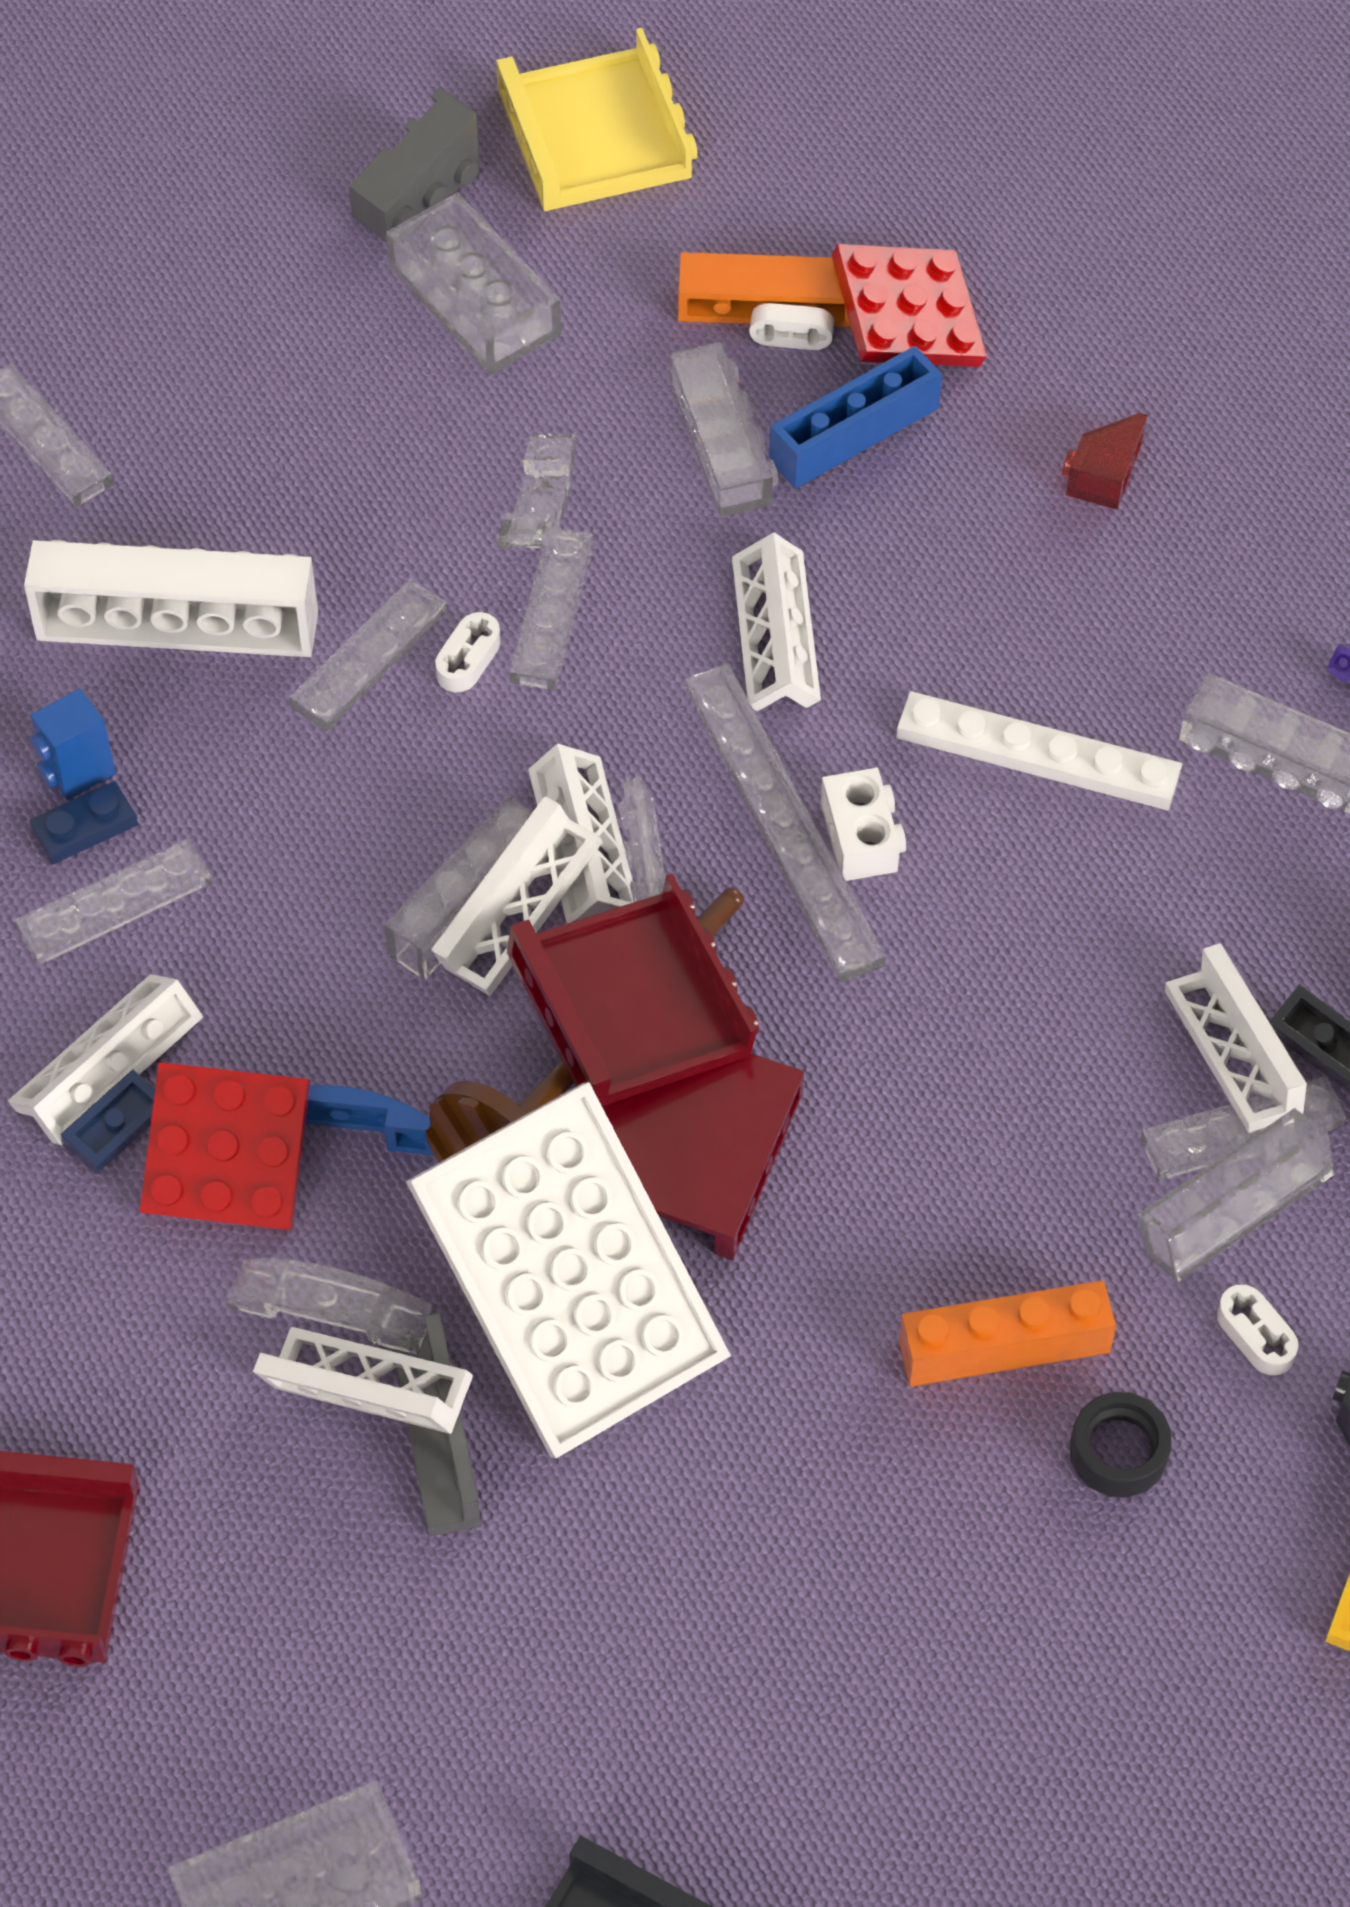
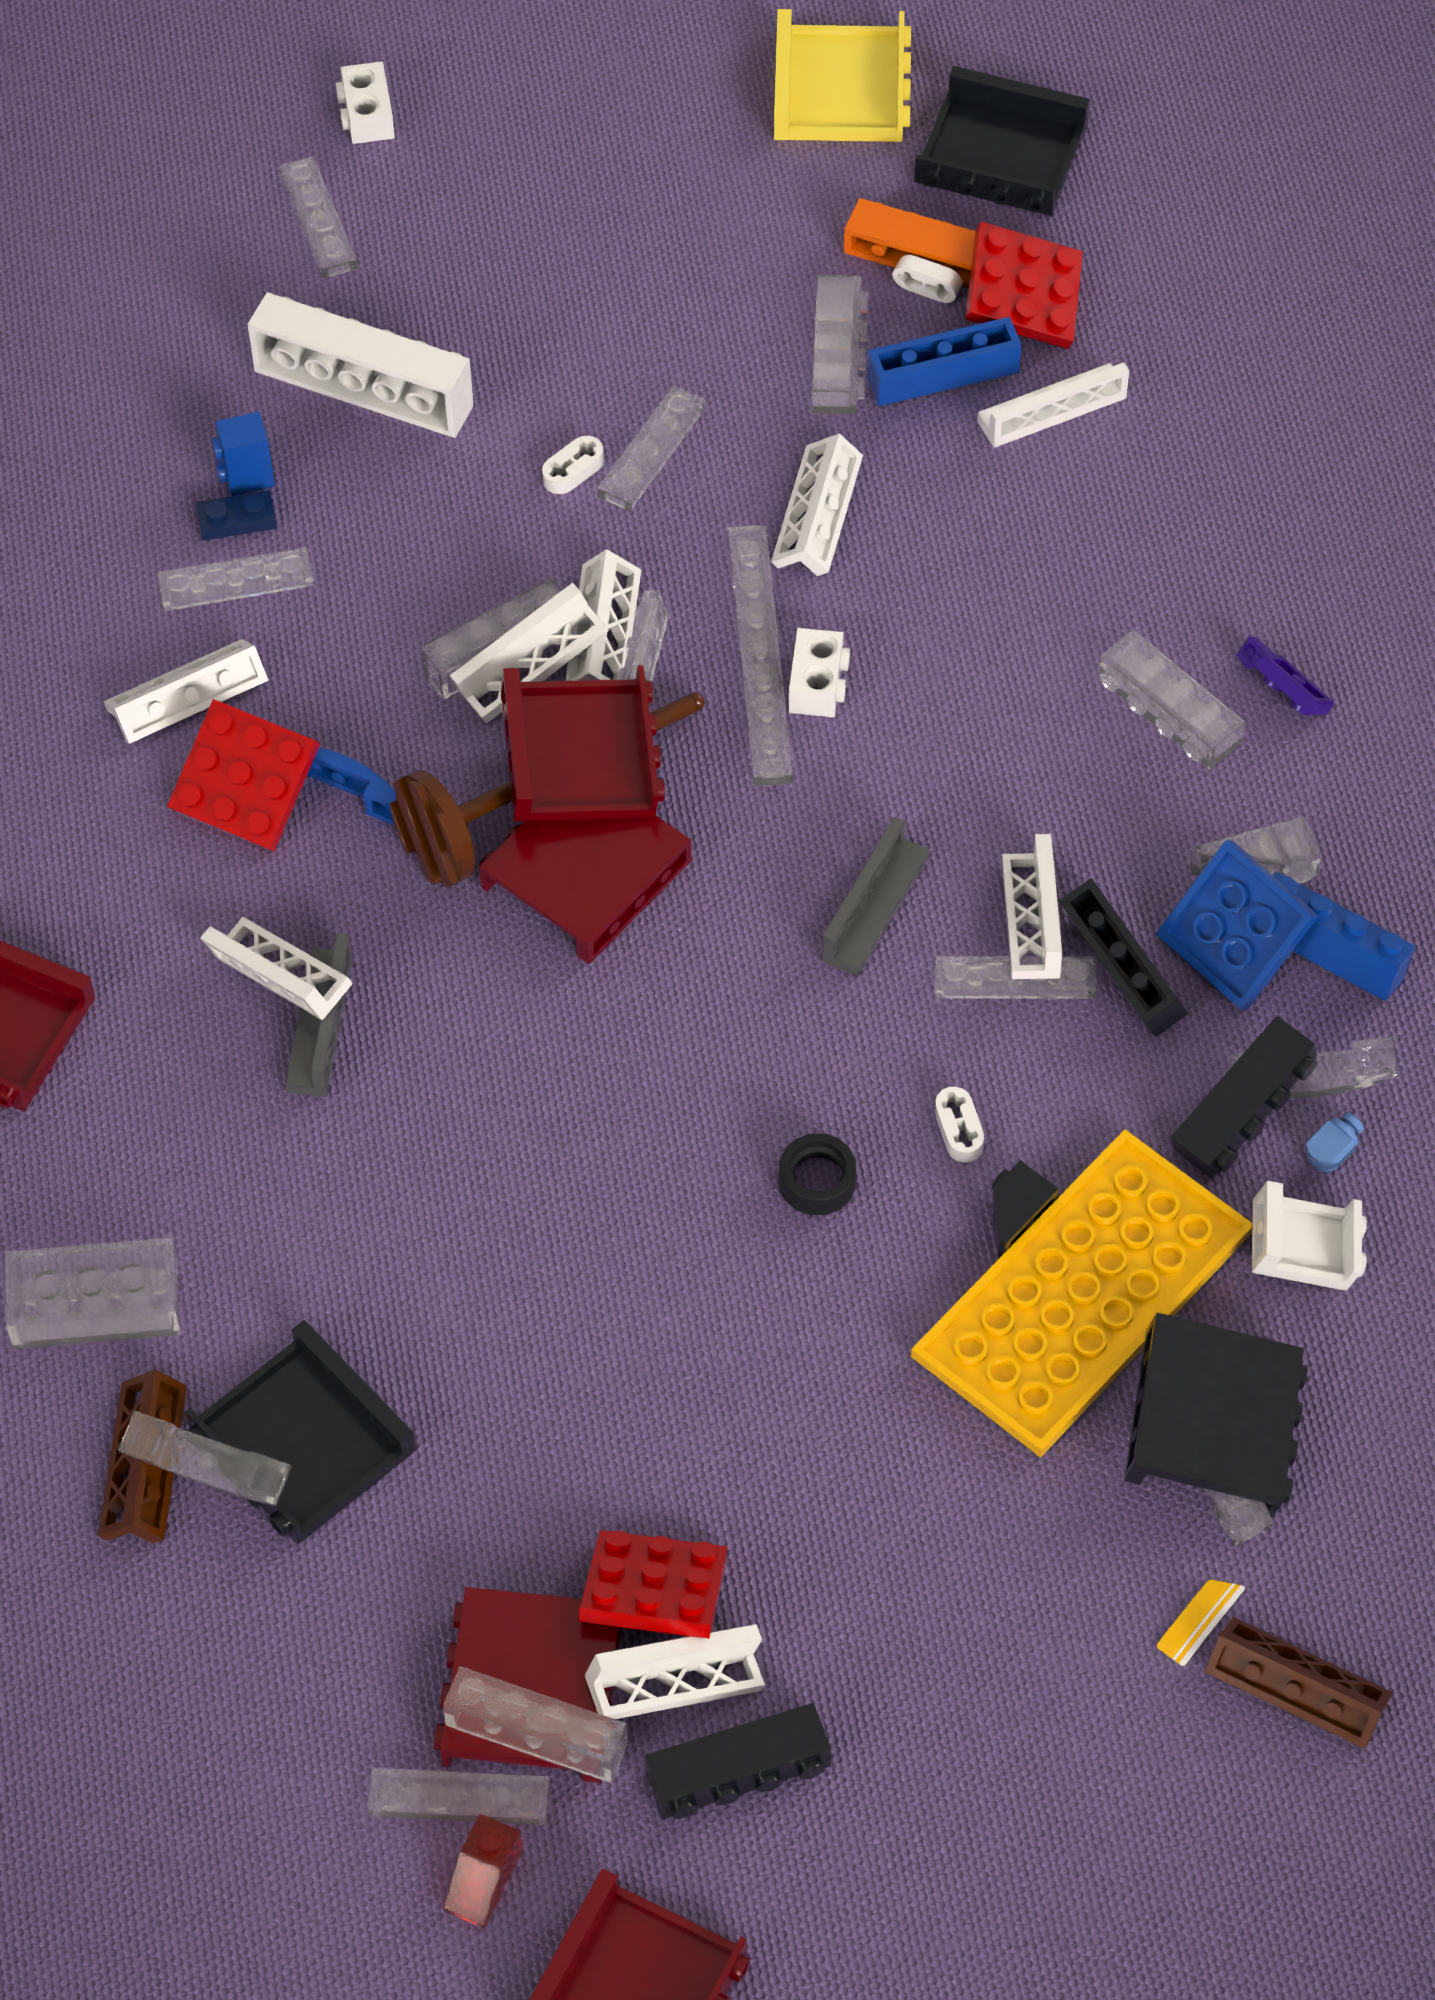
camera: 20 degrees right, 0 degrees up
(51, 284) = (367, 102): none -> white brick
(111, 1122) = (168, 737): dark blue plate -> none
(331, 1297) = (280, 904): clear slope -> none
(368, 654) = (495, 446): clear plate -> none
(421, 169) = (683, 83): dark grey wedge -> none
(474, 283) = (689, 182): clear brick -> none
(542, 495) = (679, 361): clear slope -> none
(568, 1269) = (450, 927): white plate -> none
(809, 148) = (1003, 141): none -> black panel
(995, 433) = (1054, 404): none -> white fence
(1006, 1333) = (764, 1070): orange brick -> none
(1039, 750) = (983, 655): white plate -> none
(1044, 1084) = (873, 900): none -> dark grey fence
(1105, 461) = (1132, 447): clear red slope -> none
(1236, 1194) = (981, 1020): clear brick -> none

